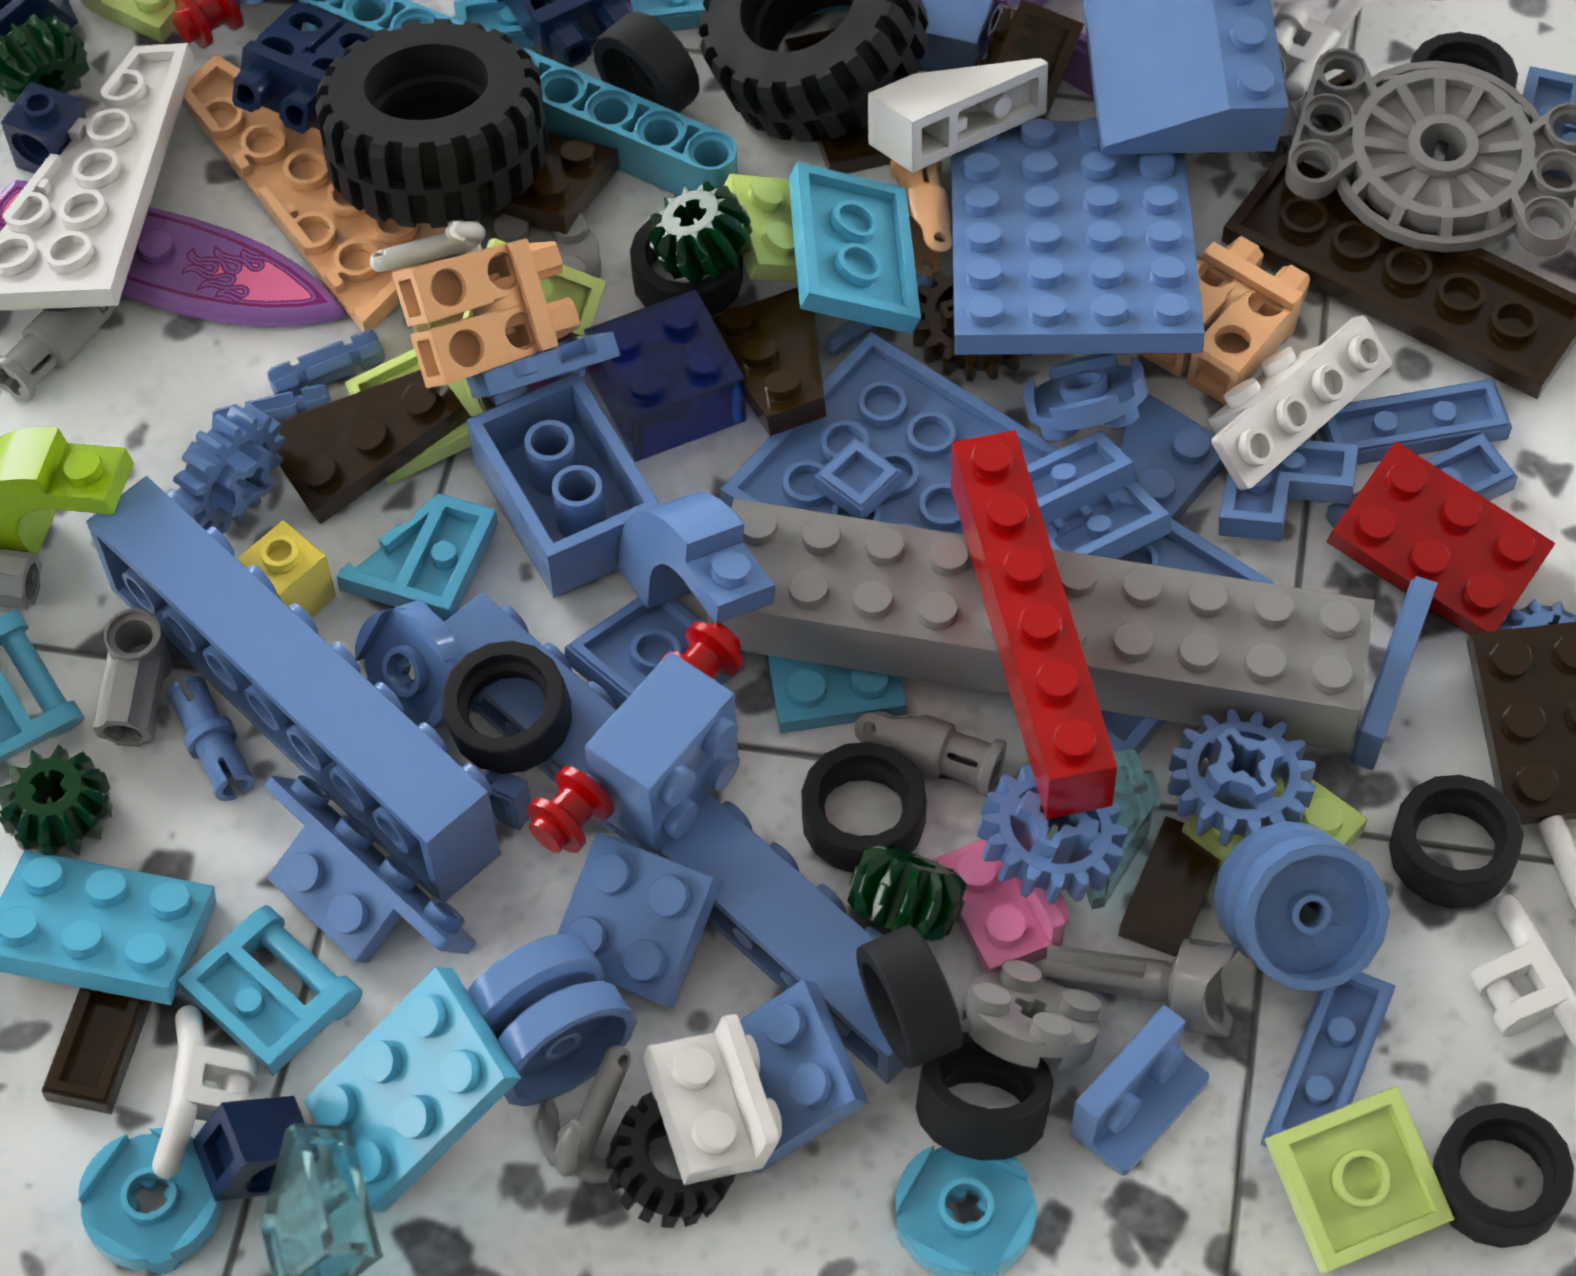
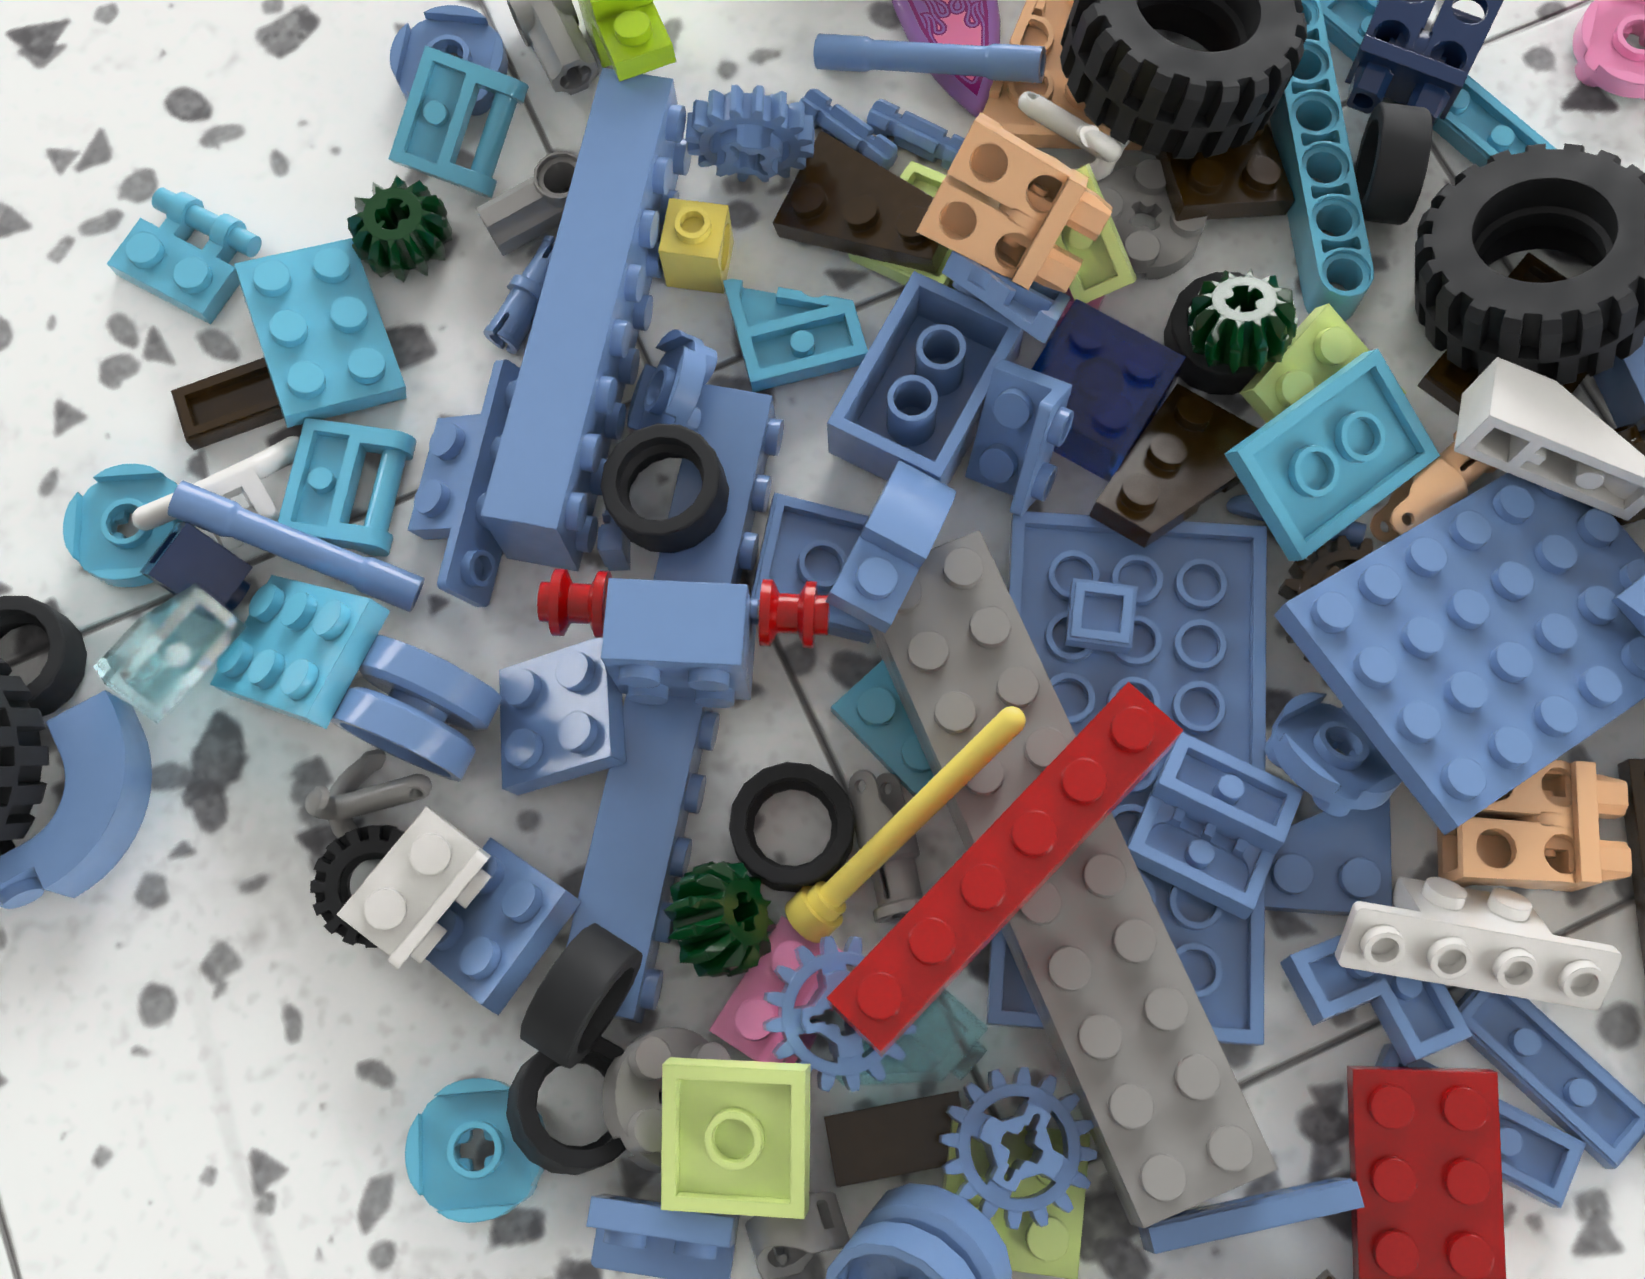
camera: 60 degrees right, 15 degrees up
(216, 355) = (994, 61): none -> medium blue piece
(241, 1078) = (229, 519): none -> medium blue piece
(666, 436) = (1018, 433): none -> medium blue bracket
(946, 820) = (819, 908): none -> light yellow piece
(1102, 954) = (735, 1137): none -> yellowish green plate

